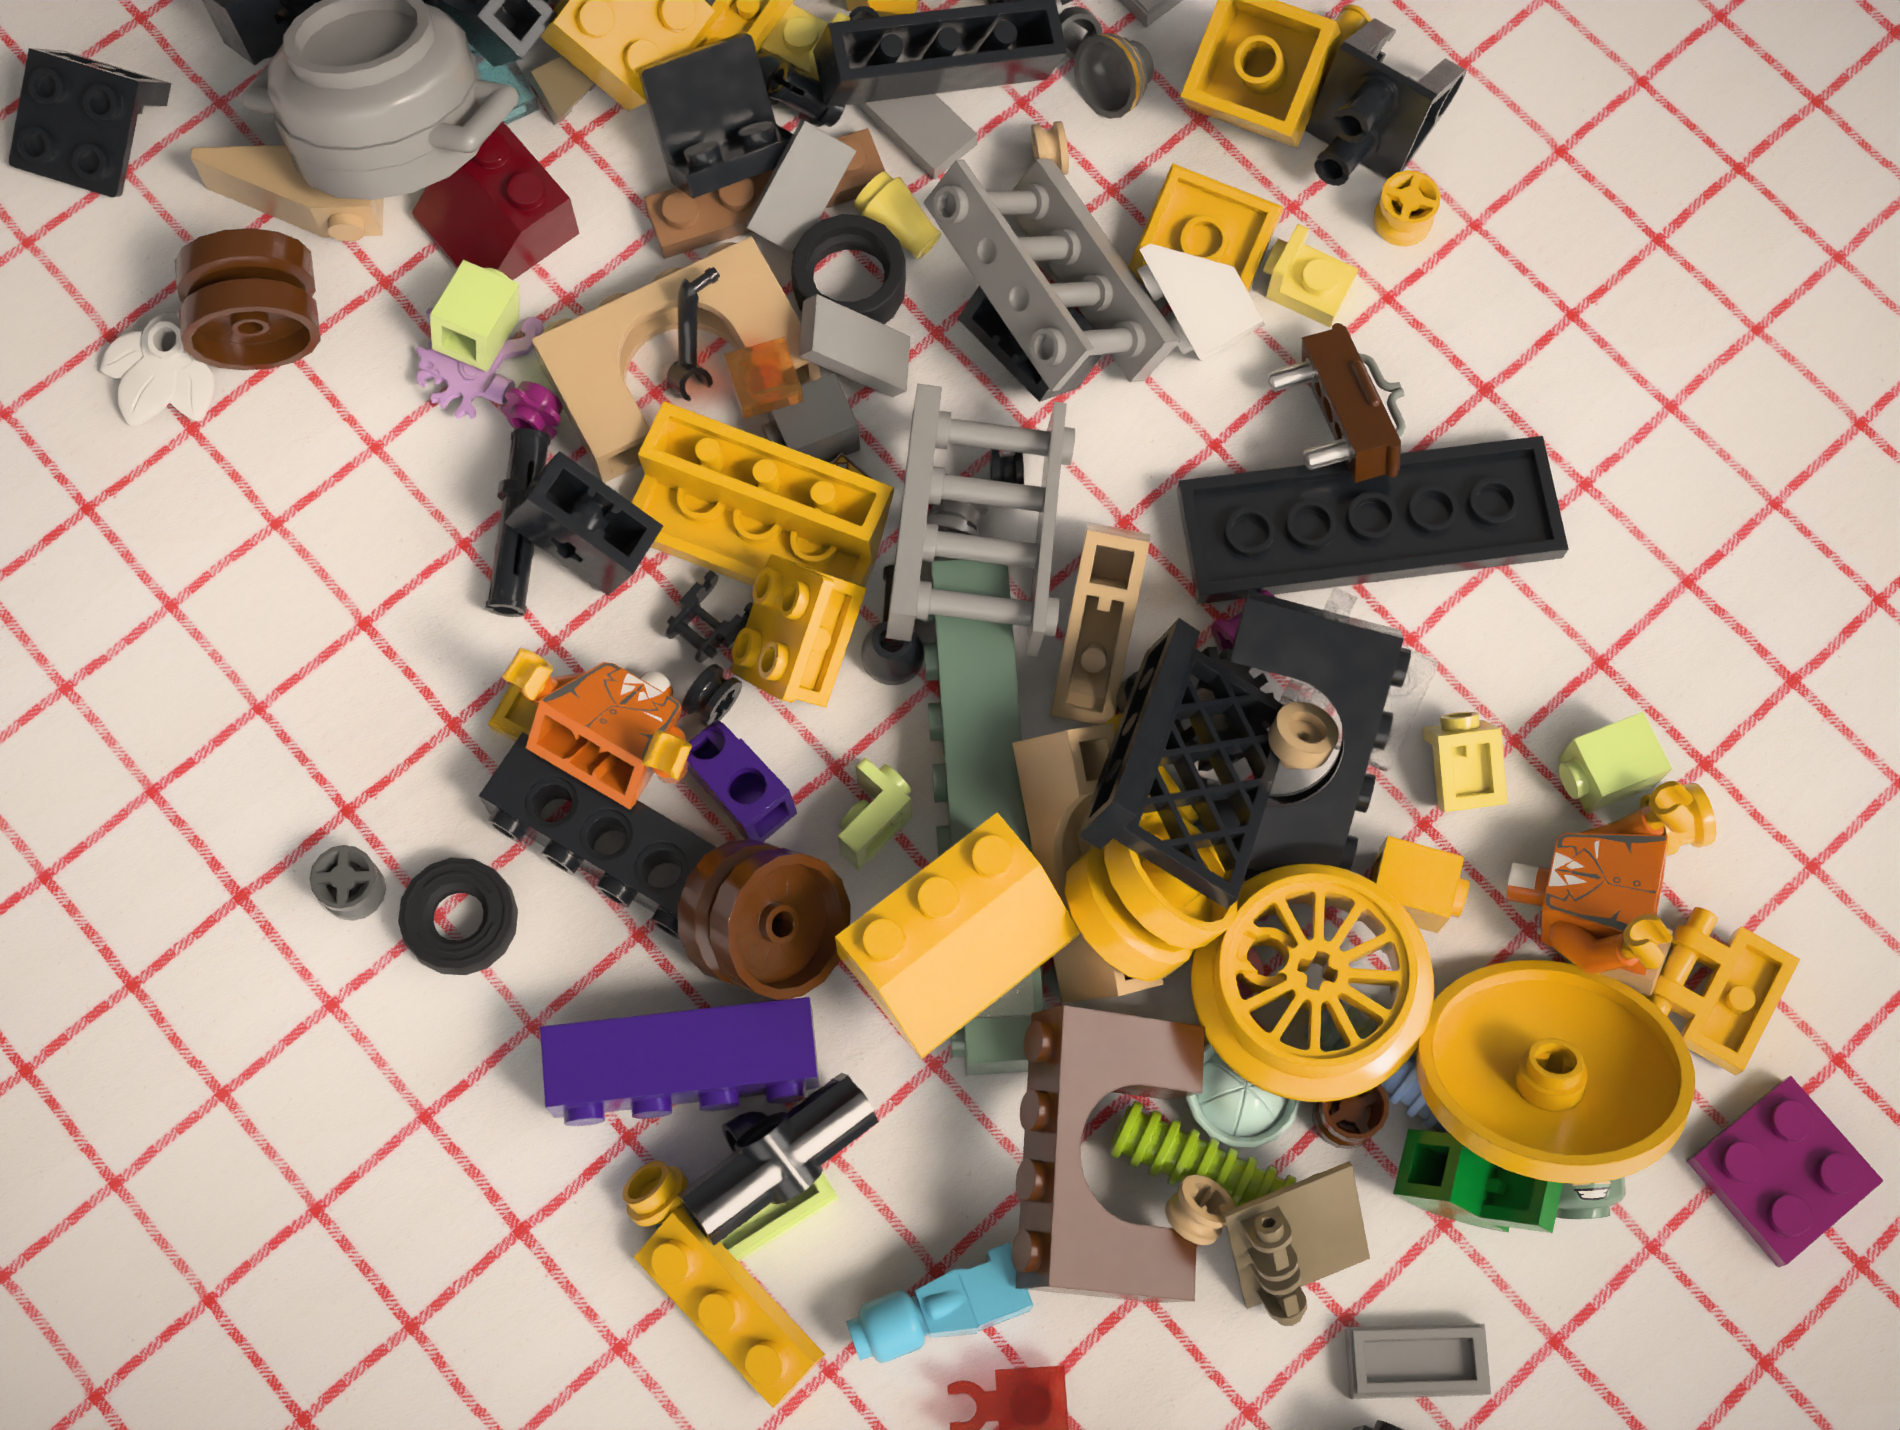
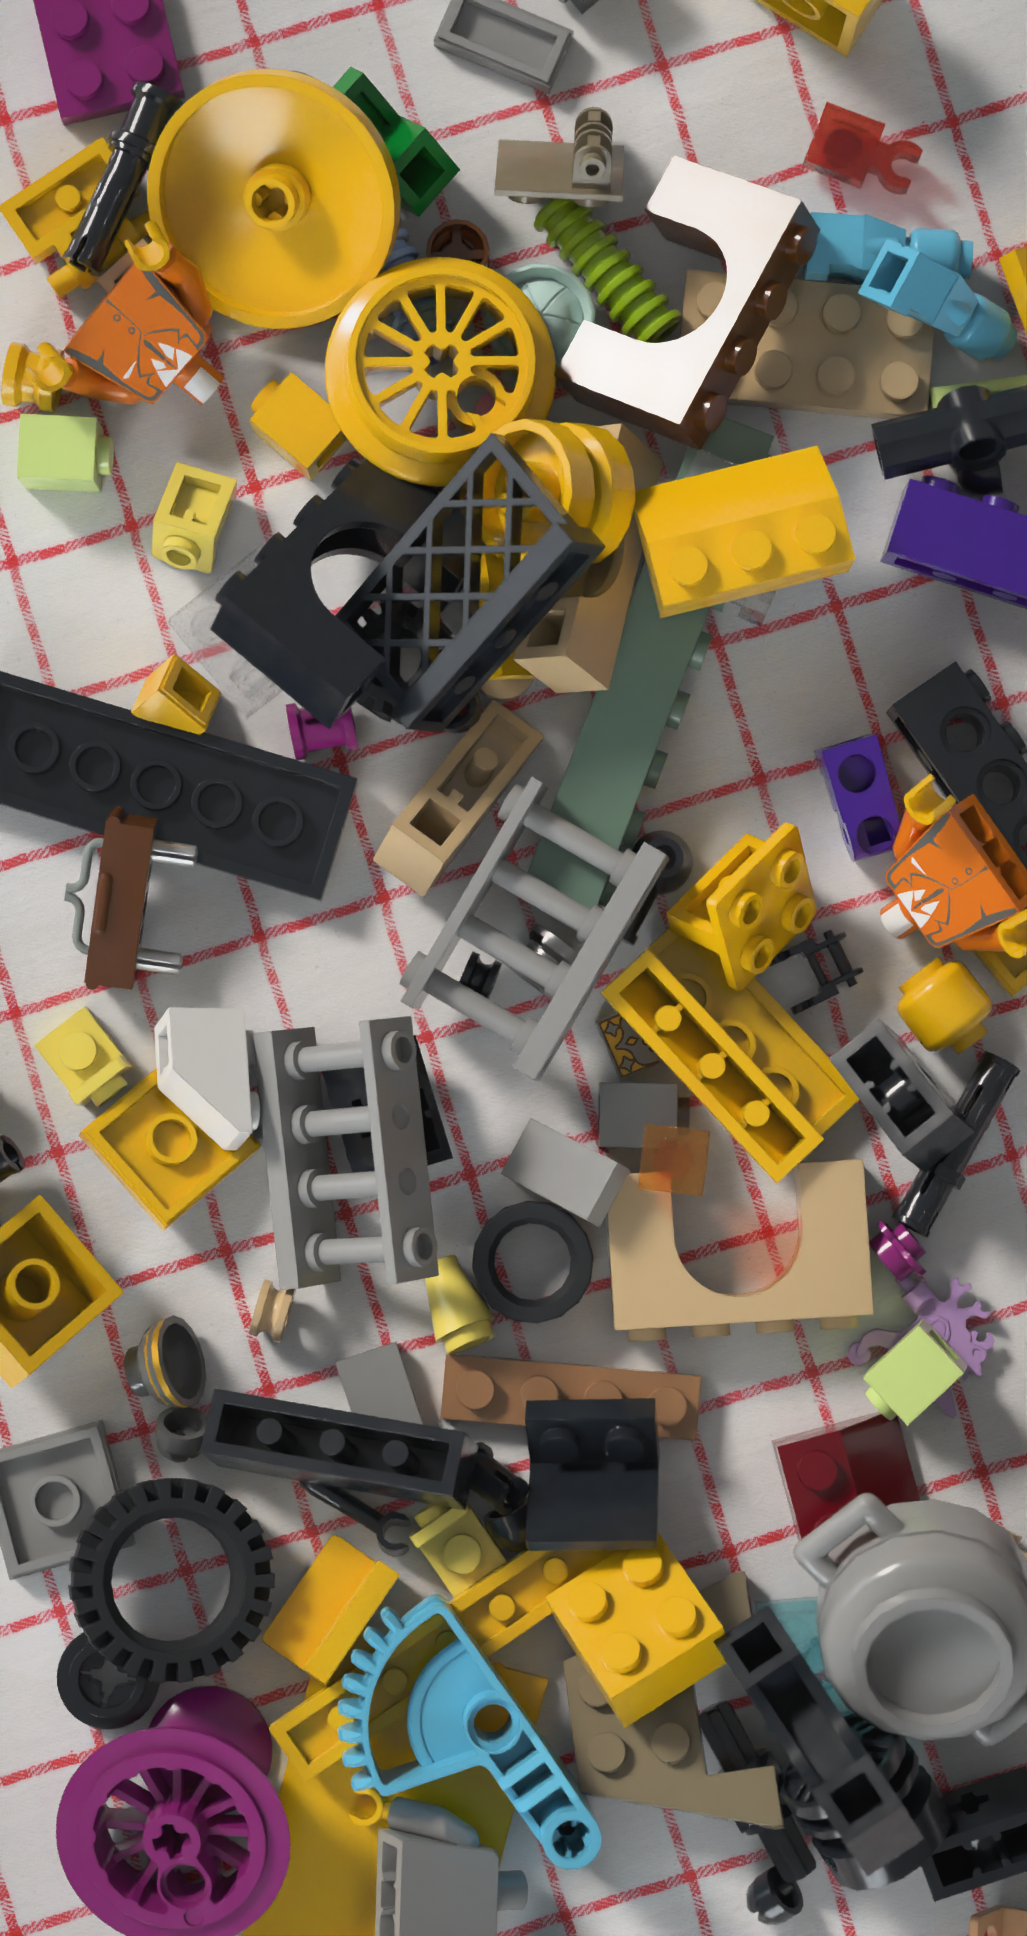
camera: 155 degrees left, 15 degrees up
(577, 627) = (944, 1006): none -> yellow head
(687, 335) = (730, 1234): black piece -> none
(711, 695) = (847, 887): black bush -> none
(763, 918) = (897, 636): reddish brown wheel -> none
(799, 186) = (542, 1369): light grey tile -> none
(873, 824) = (757, 698): yellowish green bracket -> none
(876, 1266) = (939, 297): none -> medium azure piece
(948, 1195) = (826, 351): none -> tan plate
(1198, 1209) = (651, 222): tan bush -> none
(1303, 735) = (344, 580): tan tile -> none
(1394, 595) = (177, 697): none -> yellow slope
(1704, 1032) = (123, 174): none -> black pin

